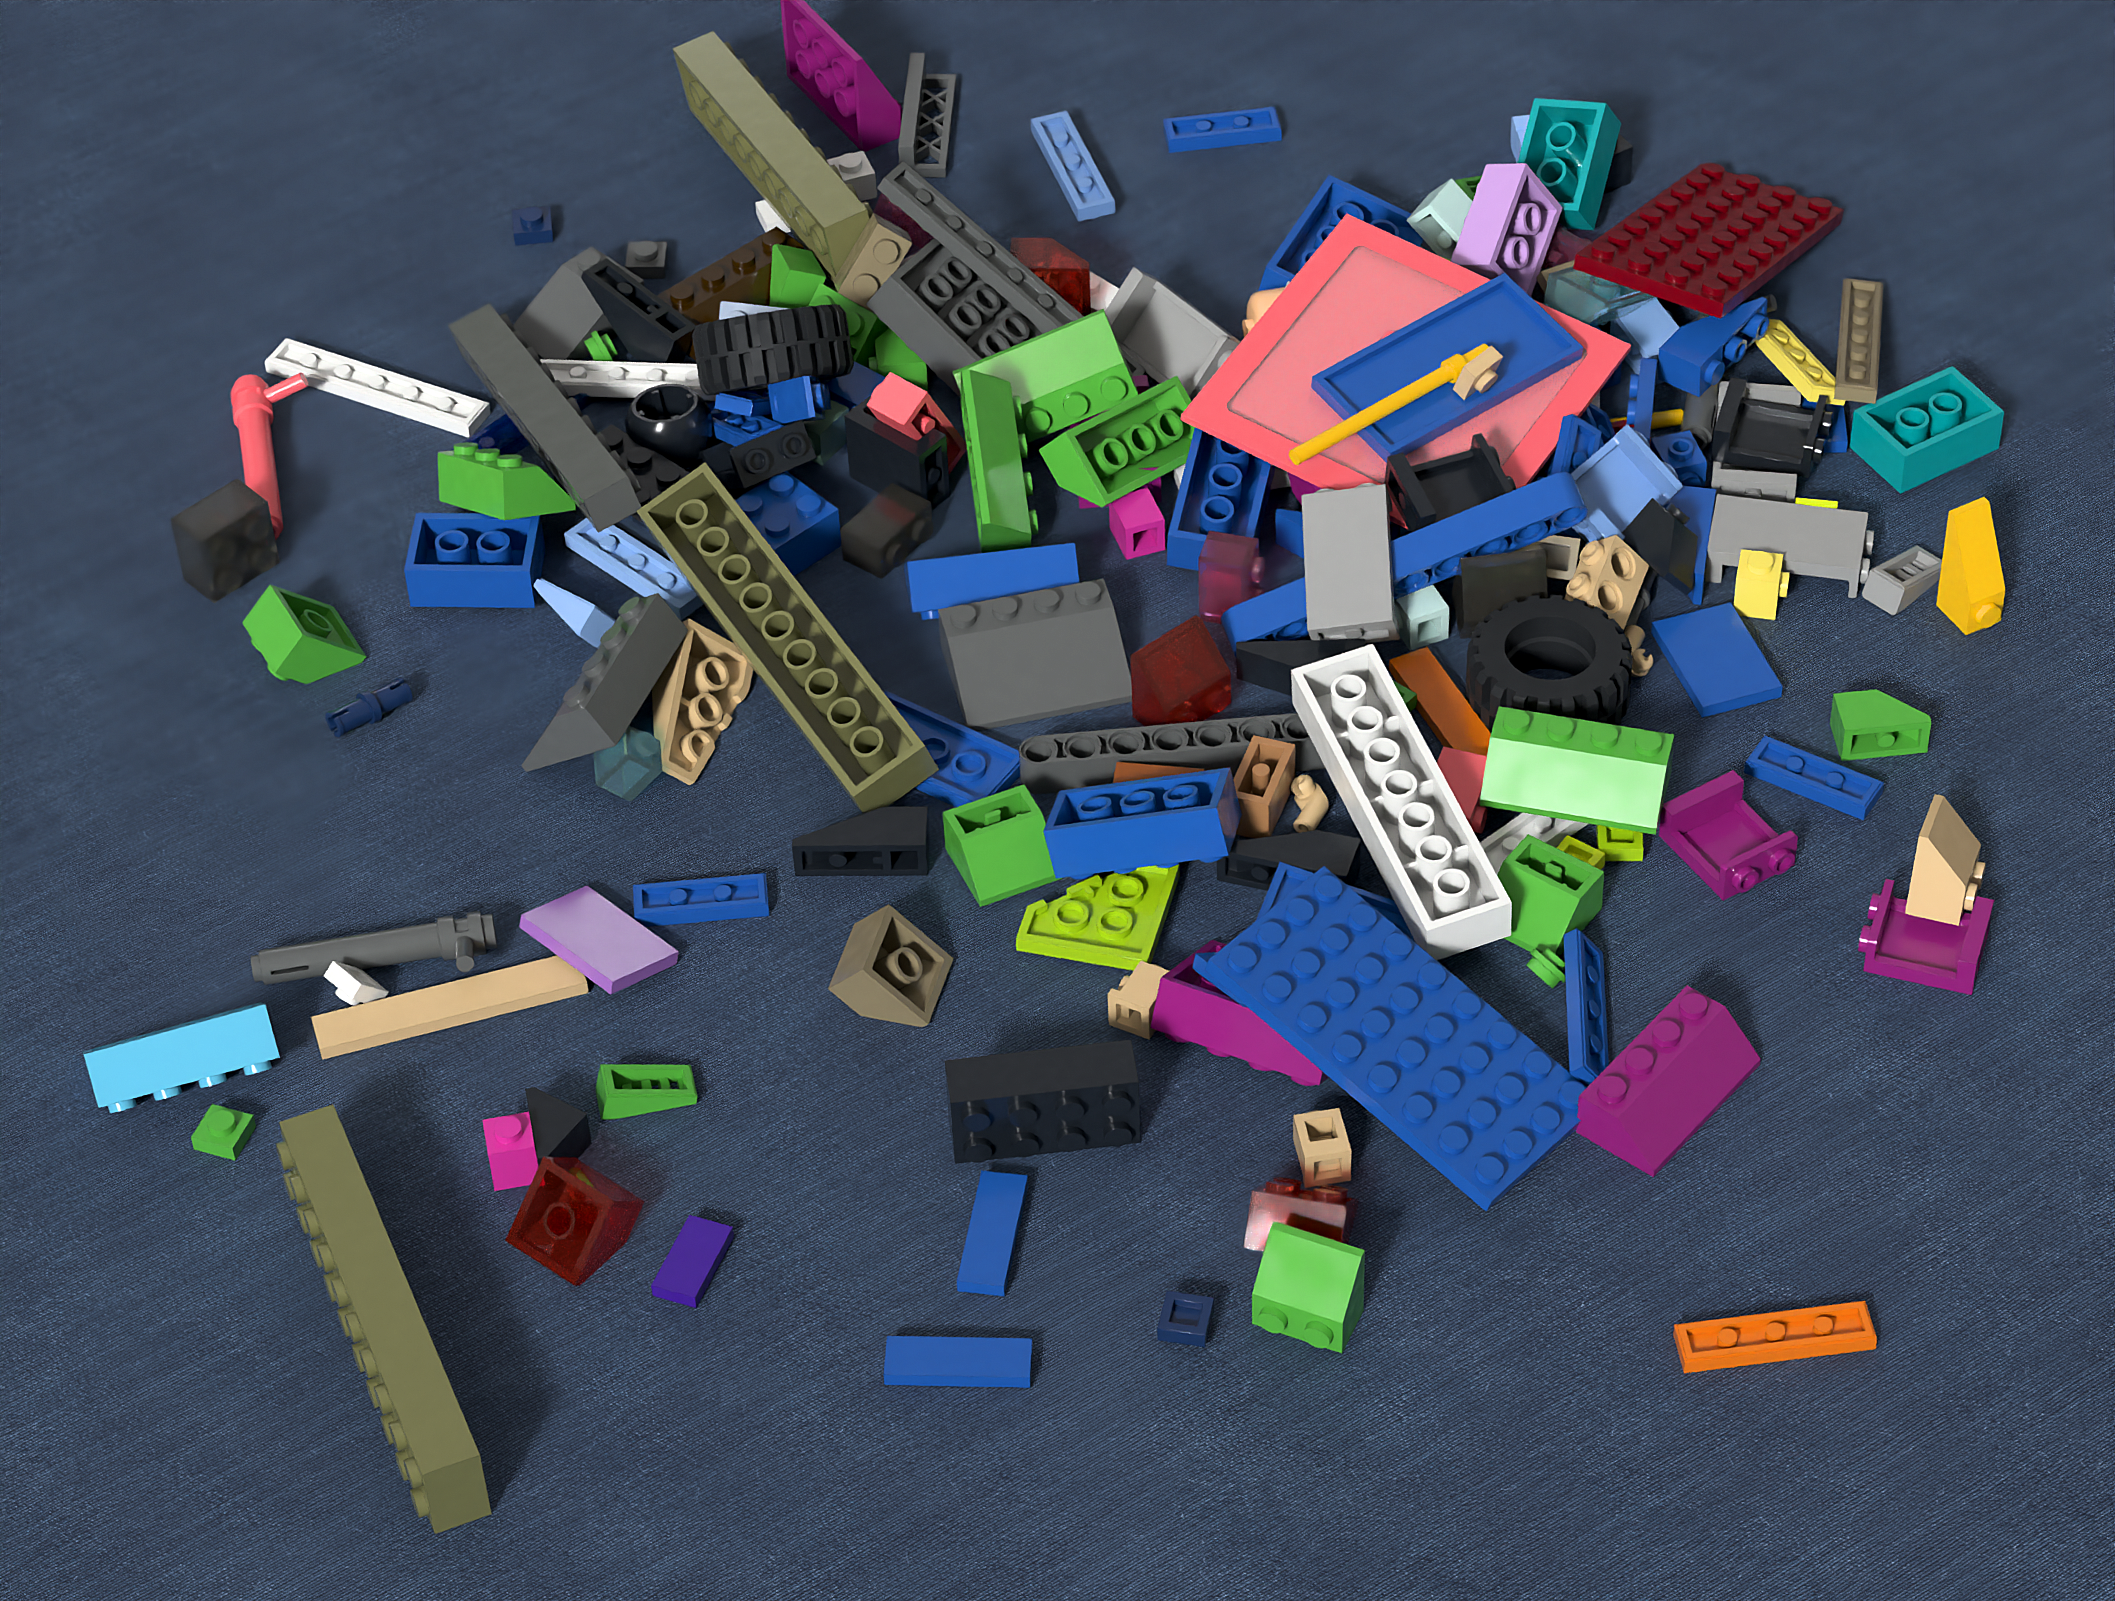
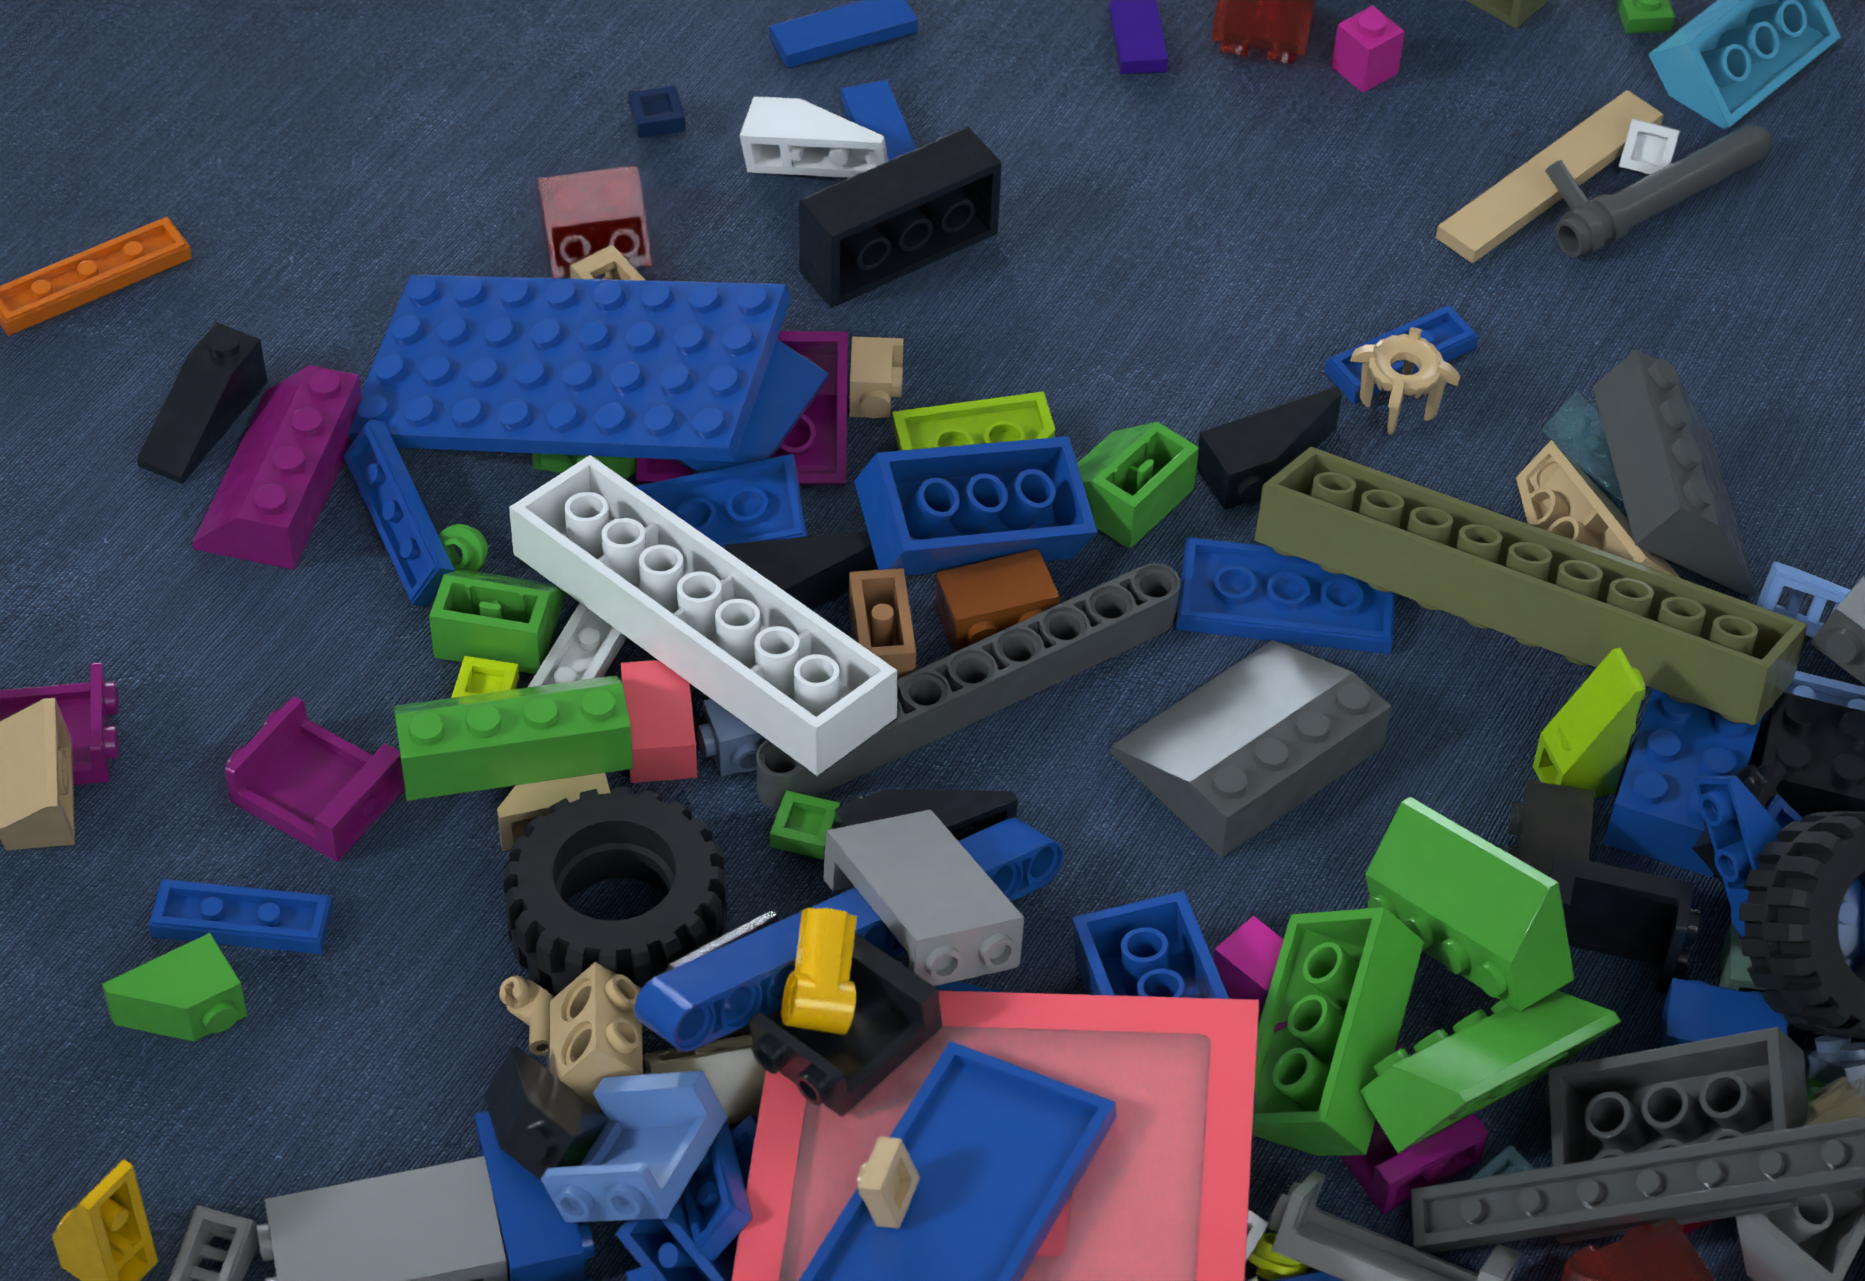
camera: 150 degrees right, 5 degrees up
(557, 1126) = (1351, 81): black slope -> none
(599, 939) = (1461, 263): tile -> none
(628, 1090) = (1314, 129): bright green slope -> none
(752, 837) = (1412, 349): none -> tan piece
(821, 548) = (1593, 730): none -> lime slope
(890, 970) = (1148, 322): dark tan slope -> none
(914, 414) = (1610, 925): coral brick -> none
(987, 576) = (1331, 836): blue slope -> none
(1077, 1227) = (806, 140): none -> white slope
(1179, 677) = (1052, 734): clear red slope -> none
(1228, 573) = (1073, 878): clear pink brick -> none
(1309, 1287) = (544, 146): slope -> none
(1441, 702) = (750, 861): orange tile -> none
(1448, 372) = (932, 1187): yellow bar -> none
(1455, 492) = (819, 988): none -> yellow piece
(1707, 1163) = (206, 399): none -> black slope
(1716, 659) = (419, 1045): blue tile -> none
(1760, 584) = (396, 1143): light yellow brick -> none

